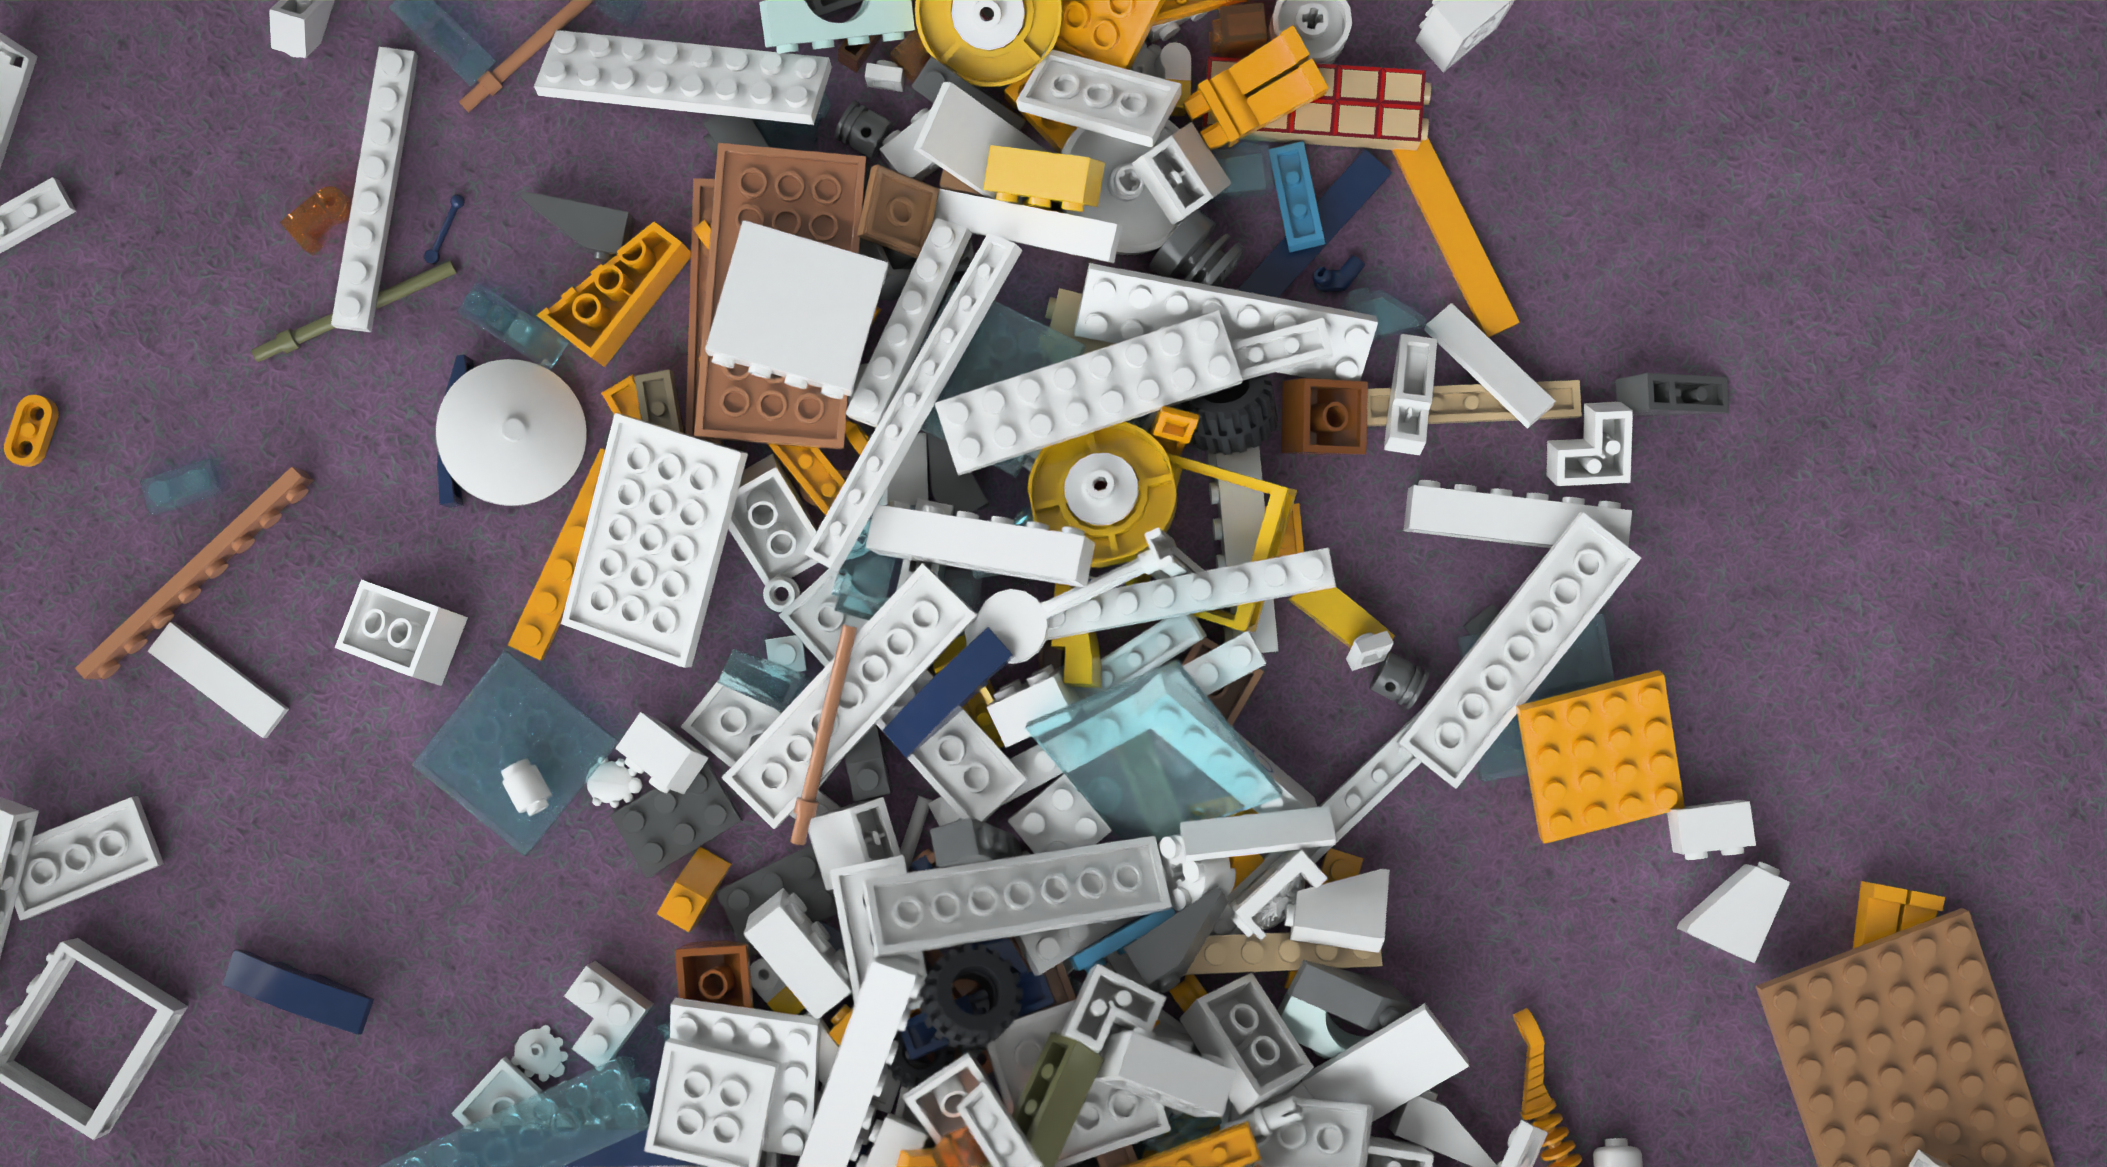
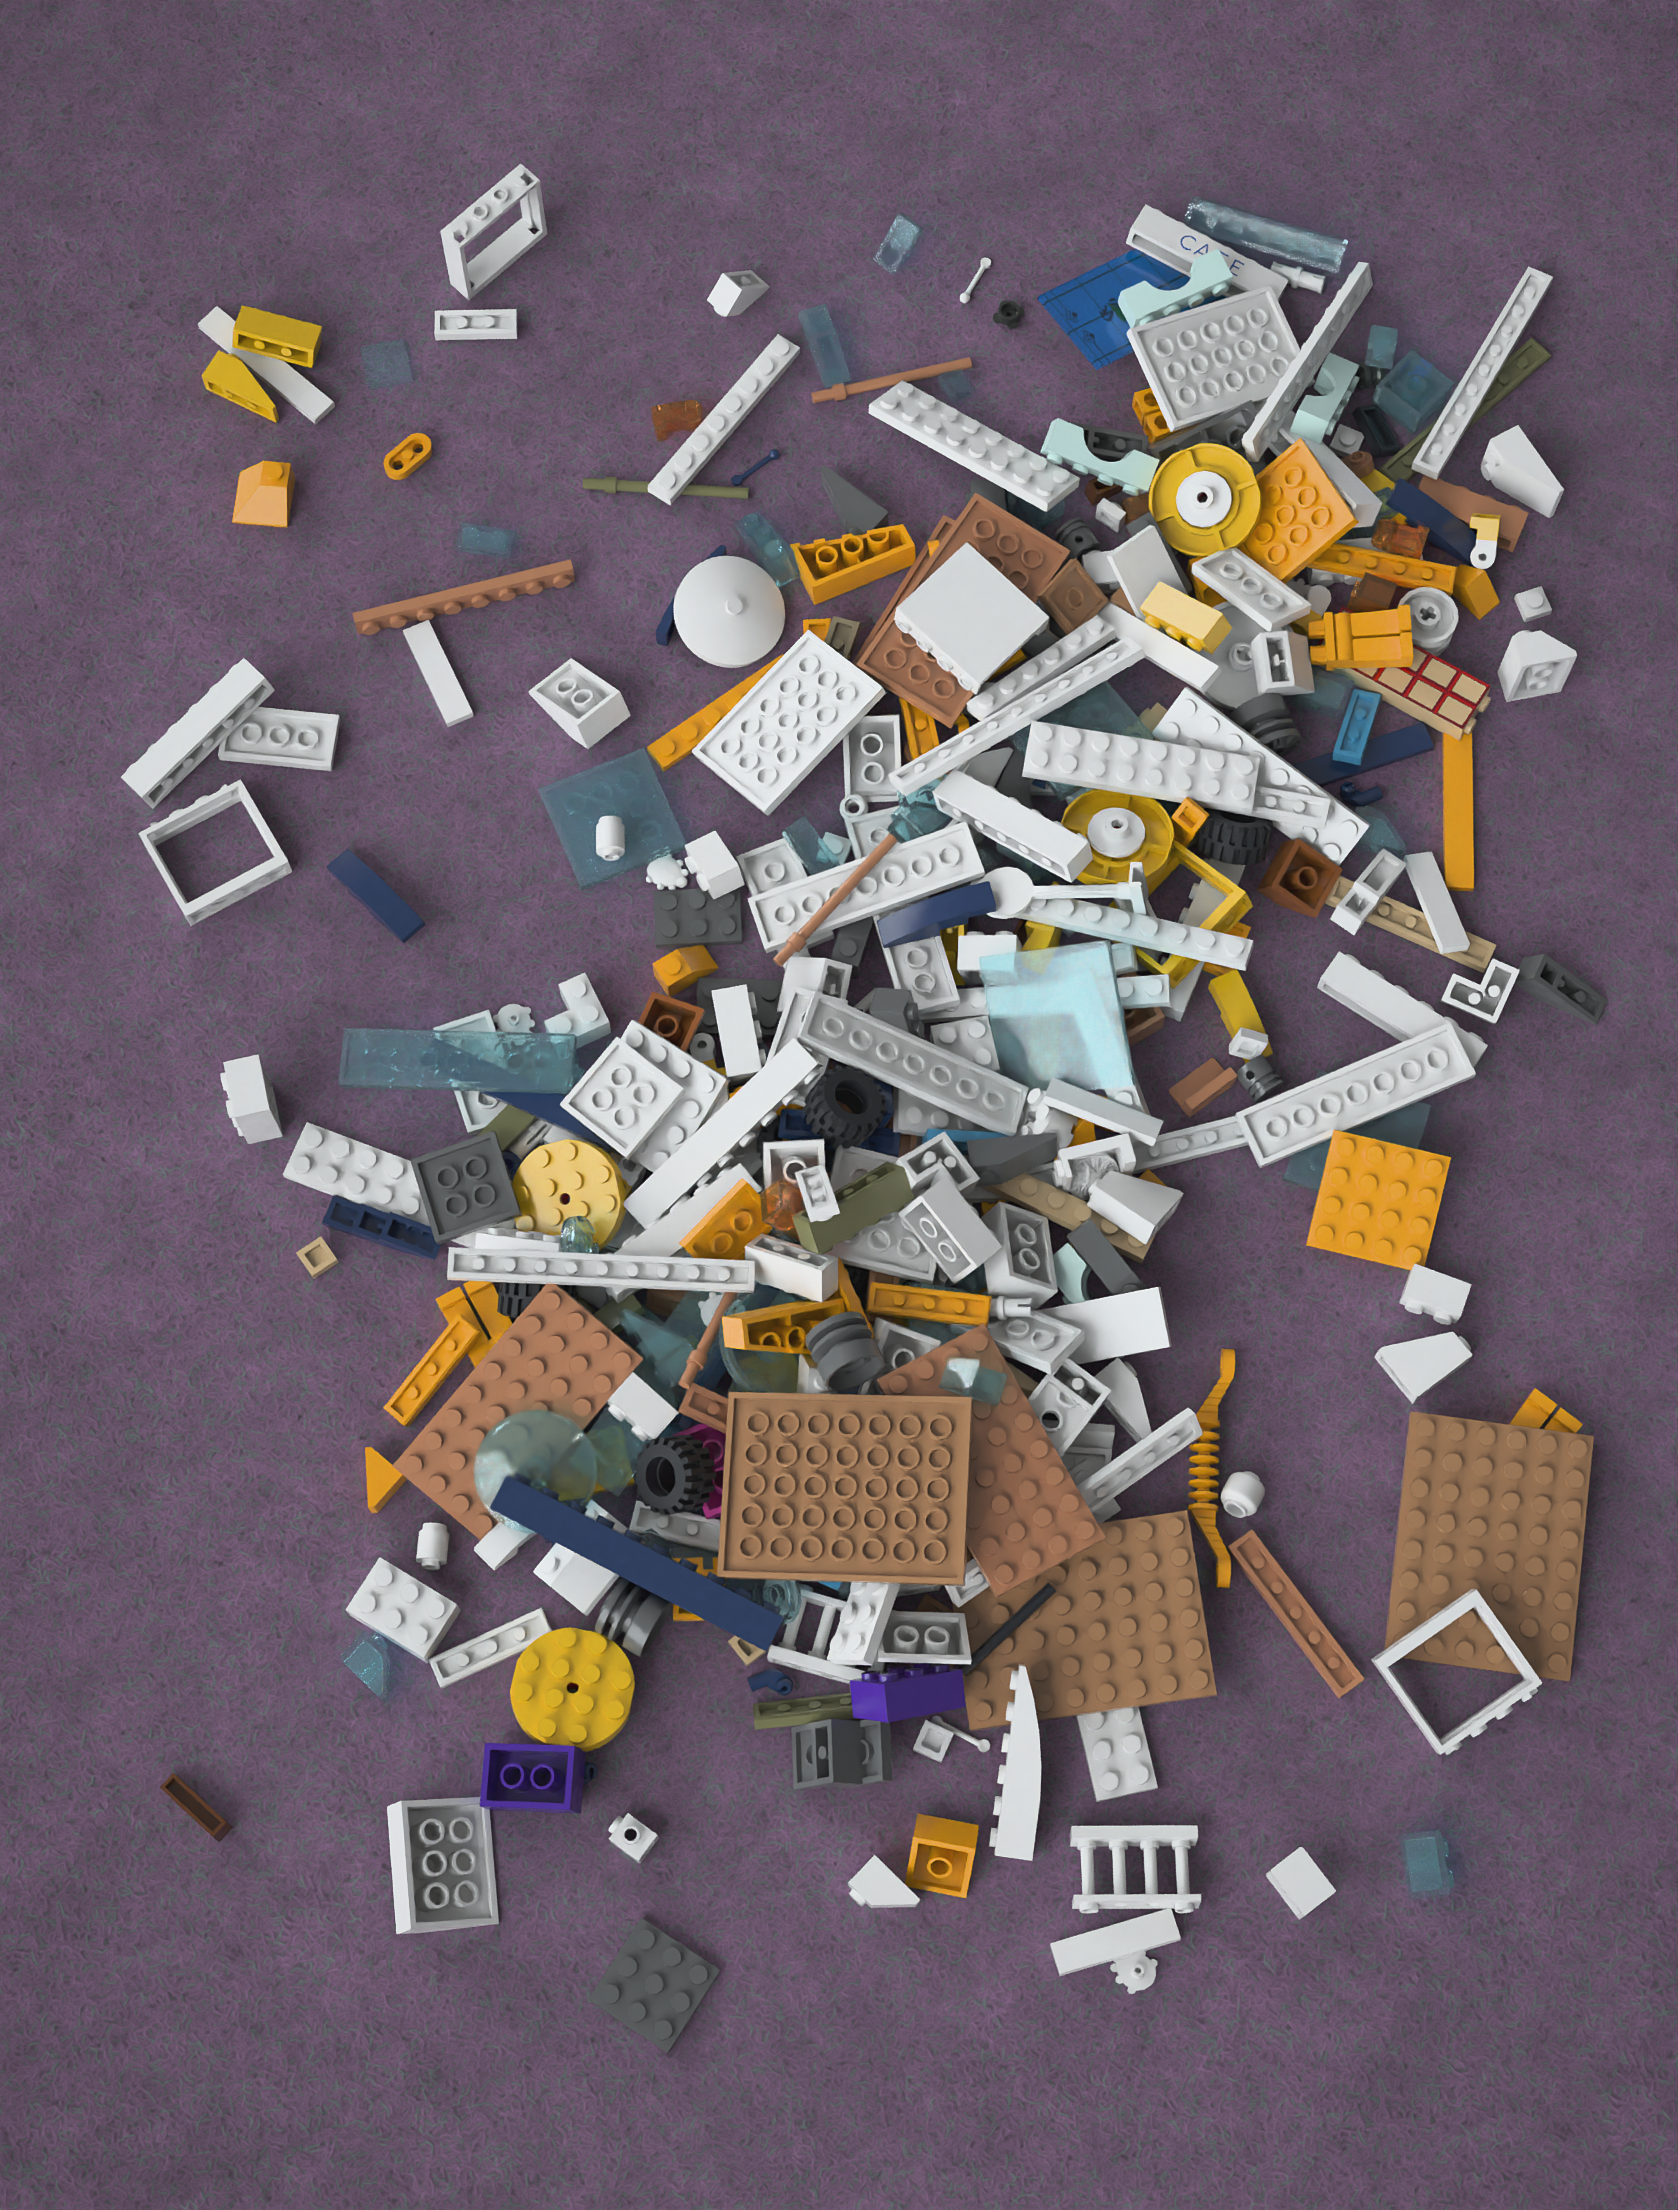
camera: 30 degrees right, 15 degrees down
(1338, 718) = (1202, 1086): none -> nougat panel

